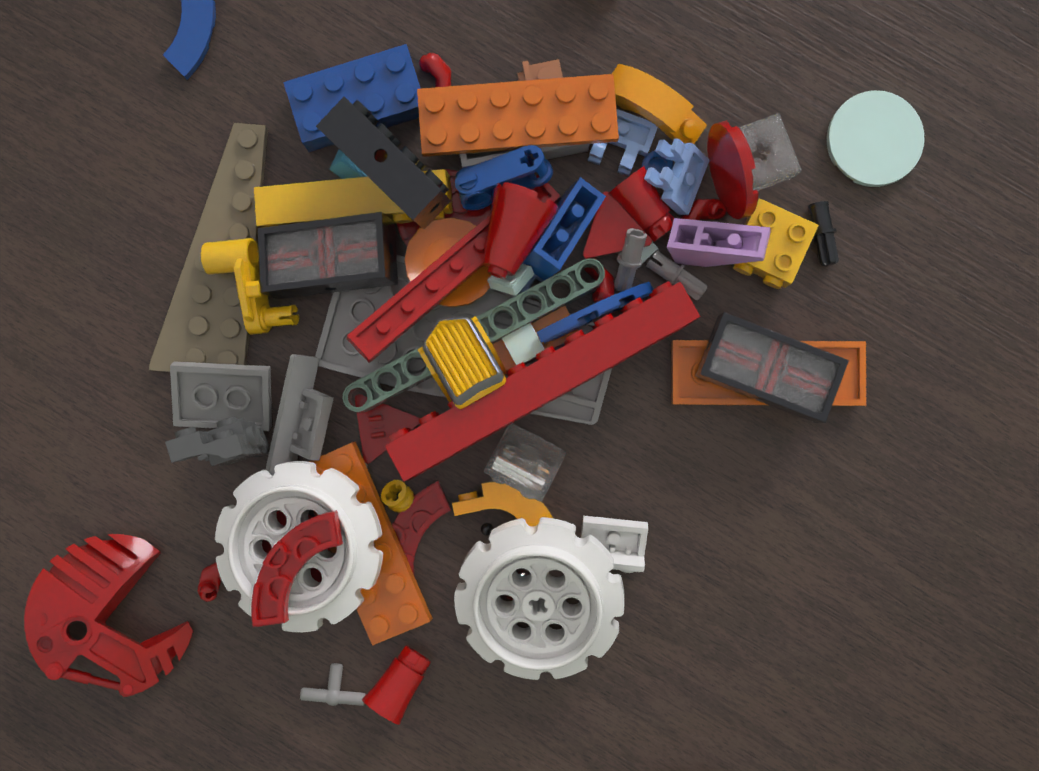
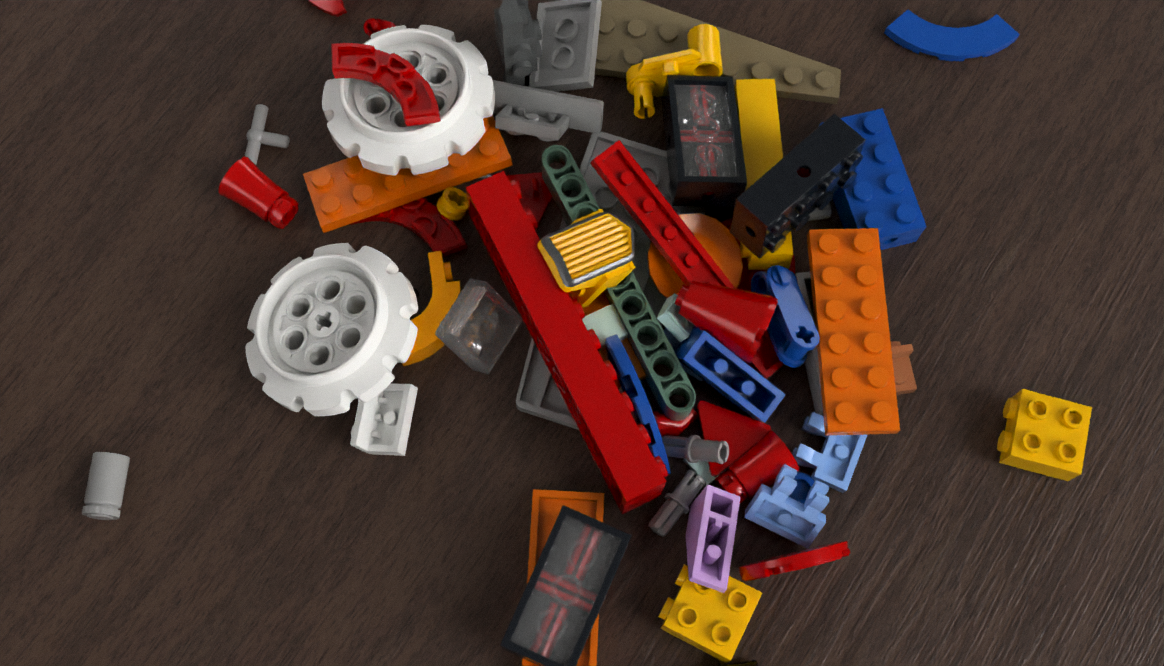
camera: 85 degrees right, 15 degrees down
(437, 67) = (902, 265): red arm -> none
(657, 103) = (867, 488): light orange arch -> none
(706, 210) = (750, 539): red arm -> none
(780, 160) = (803, 626): clear brick -> none

